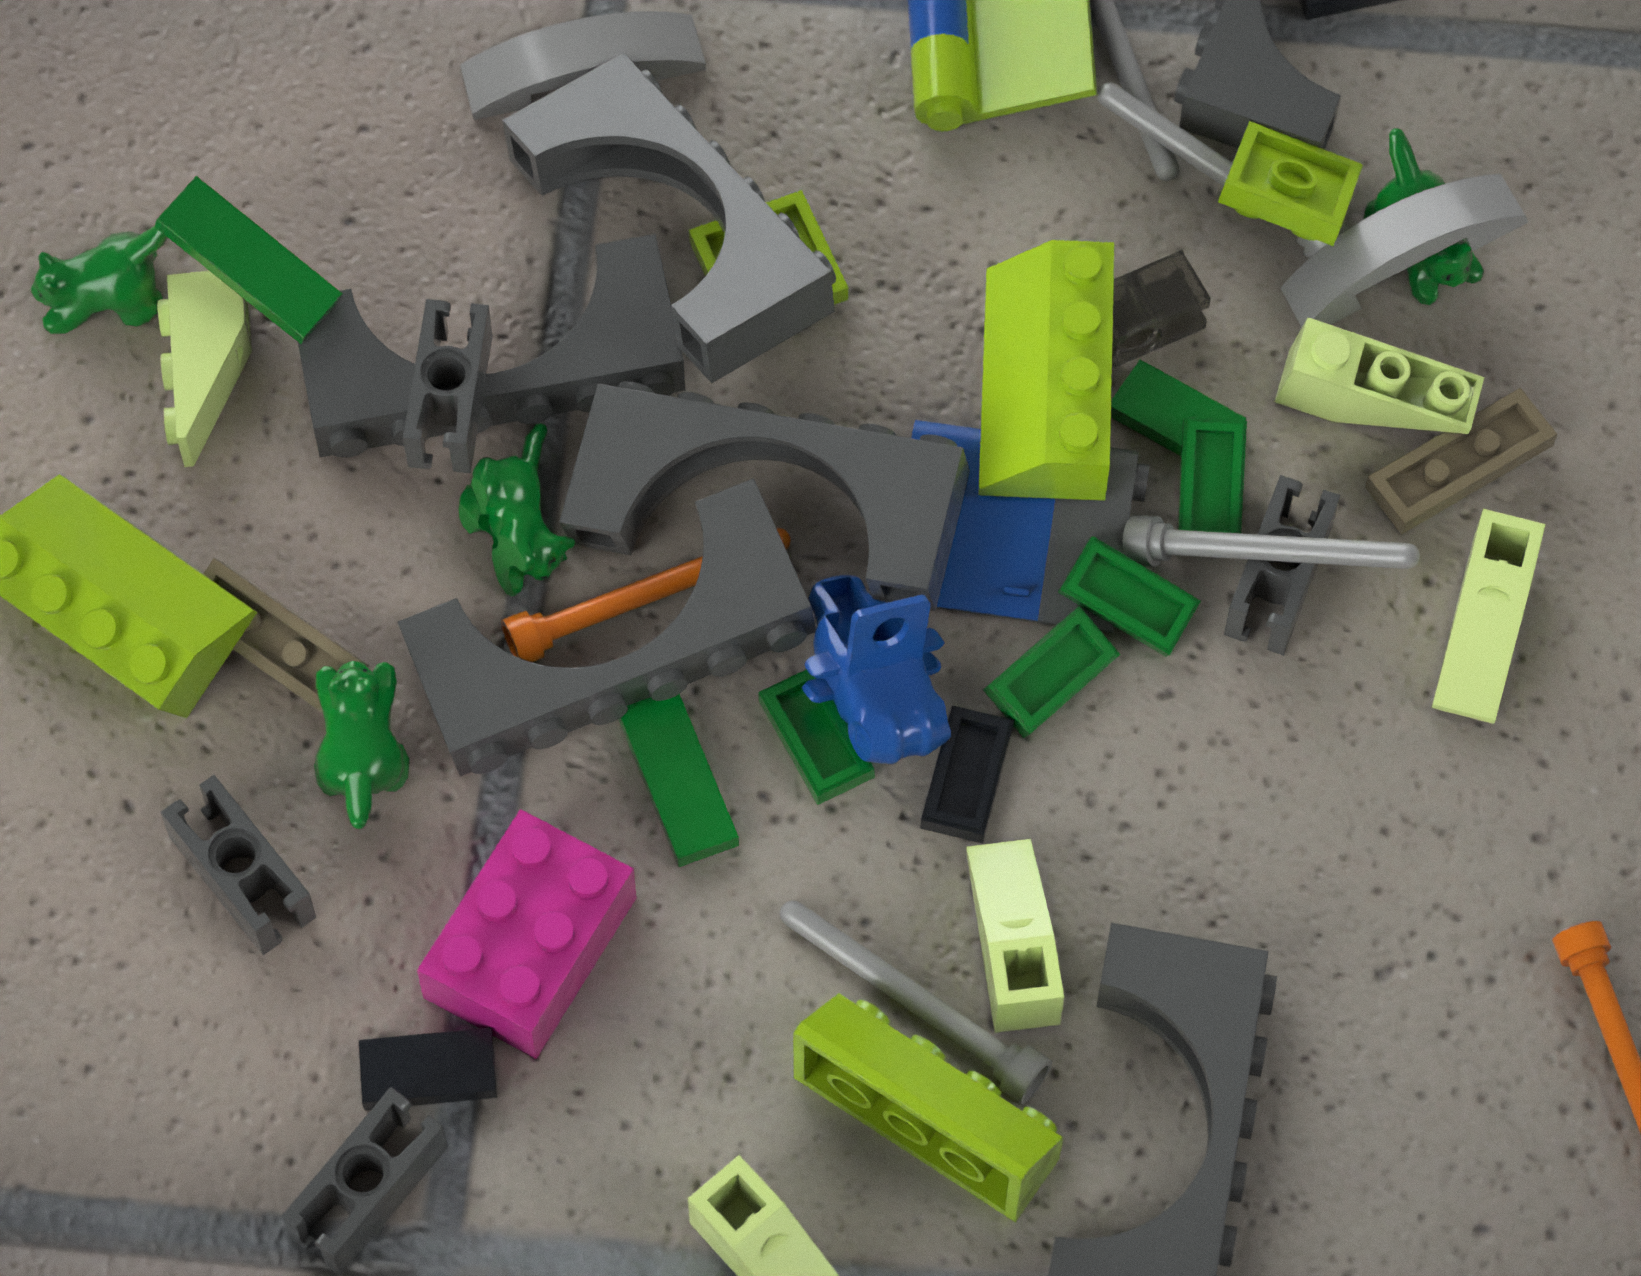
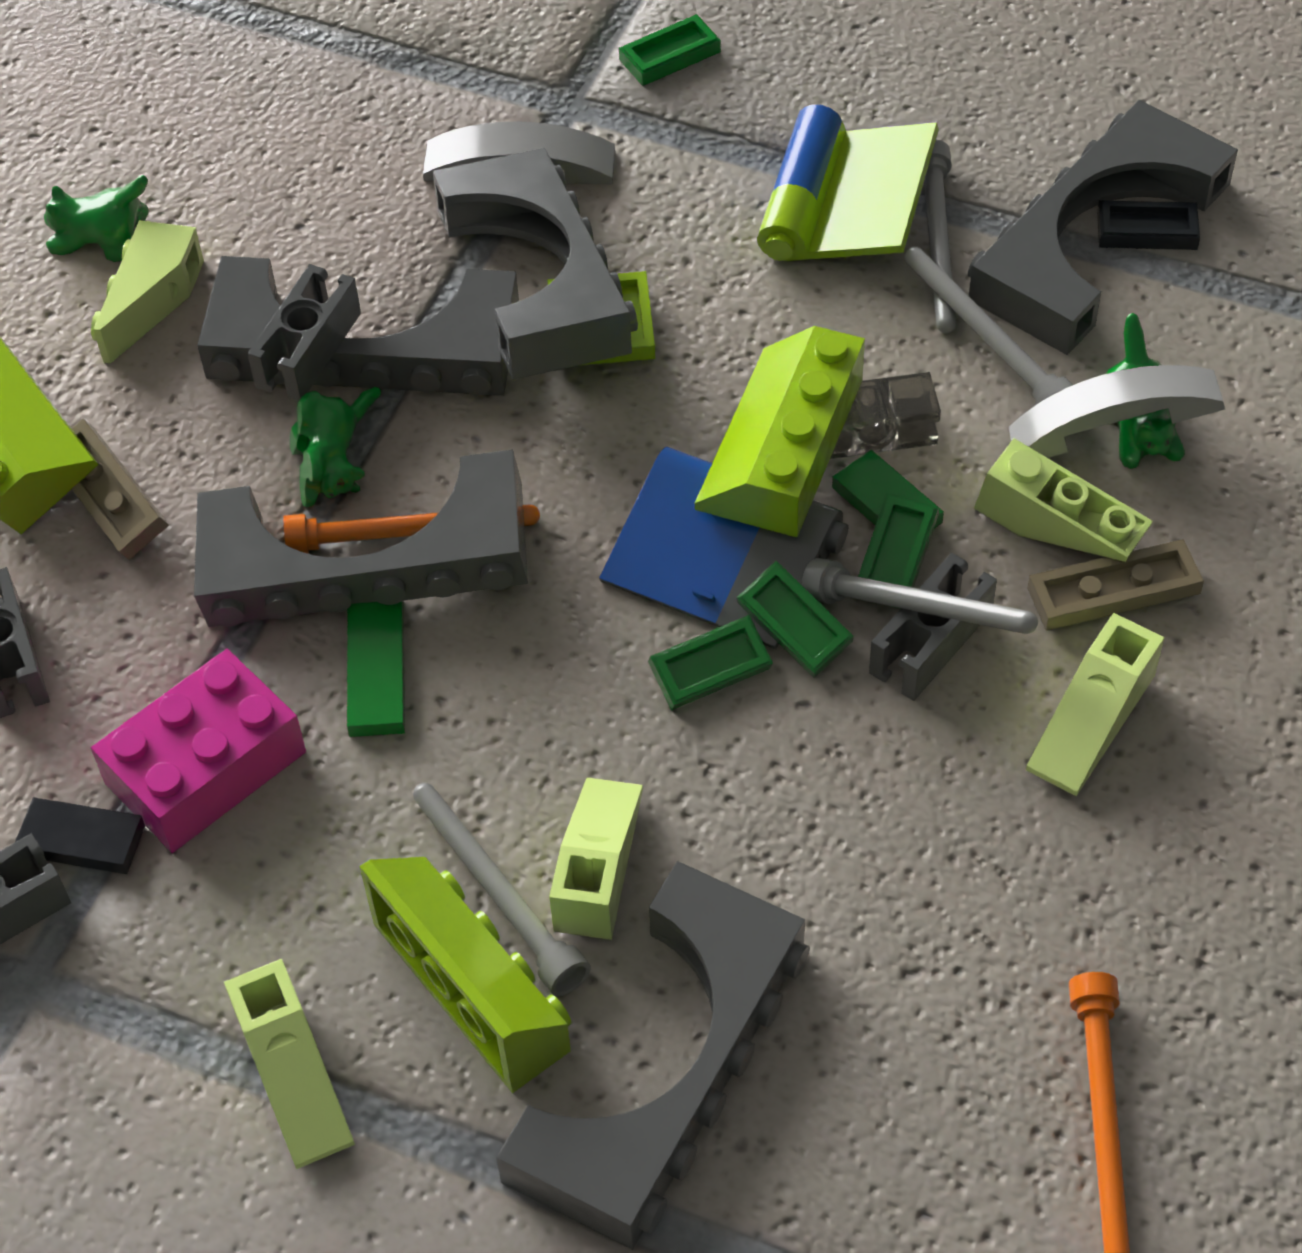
camera: 20 degrees right, 10 degrees down
(248, 259) = (194, 215): green tile -> none
(359, 748) = (131, 576): green animal -> none
(651, 443) = (448, 415): dark grey arch -> none
(814, 739) = (500, 664): green tile -> none
(877, 670) = (562, 621): blue piece -> none
(967, 775) = (611, 724): black tile -> none
(1290, 184) = (1035, 343): lime plate -> none

